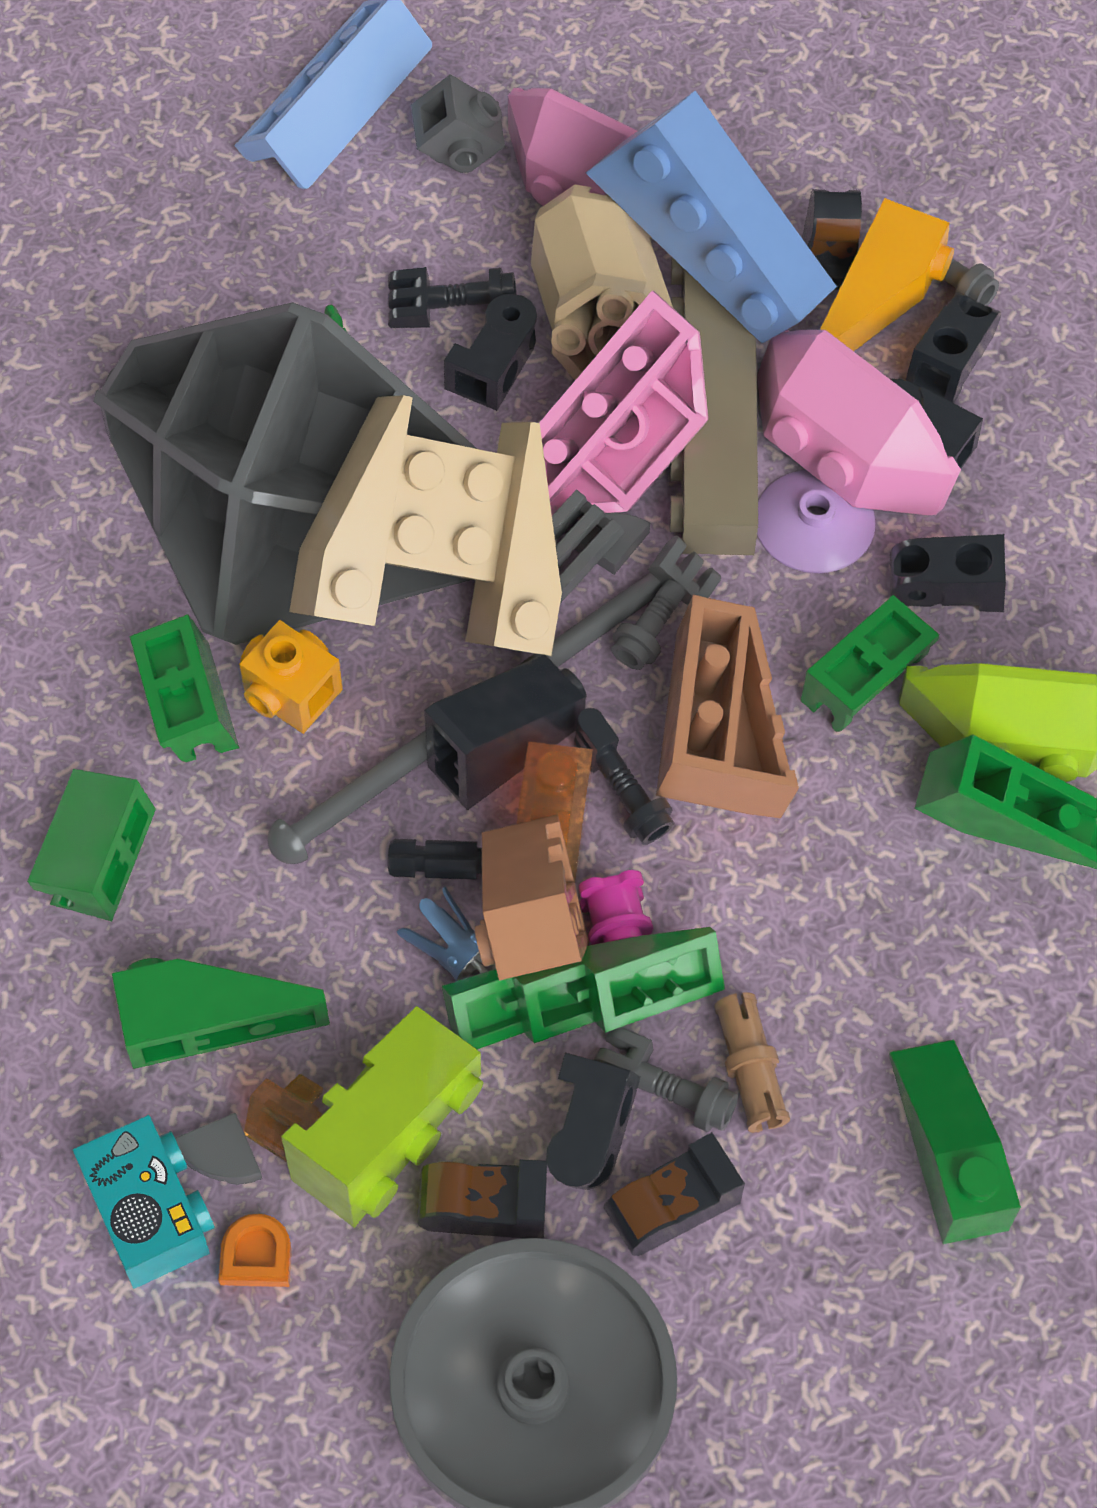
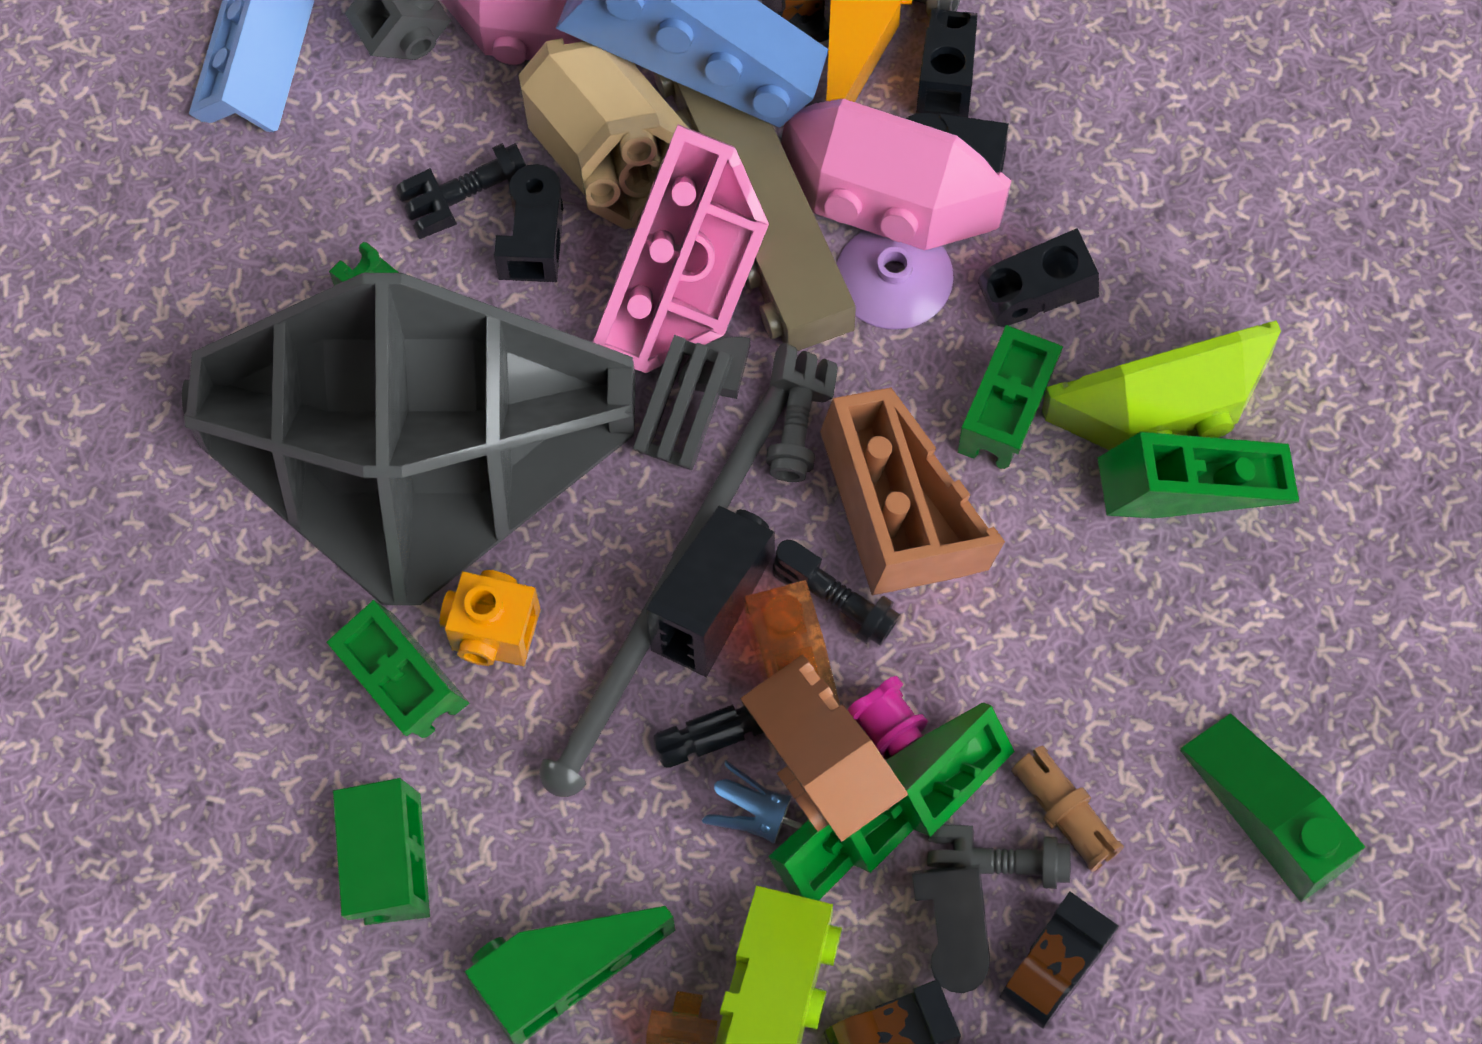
camera: 20 degrees left, 5 degrees up
(442, 514) = (573, 415): tan wedge -> none

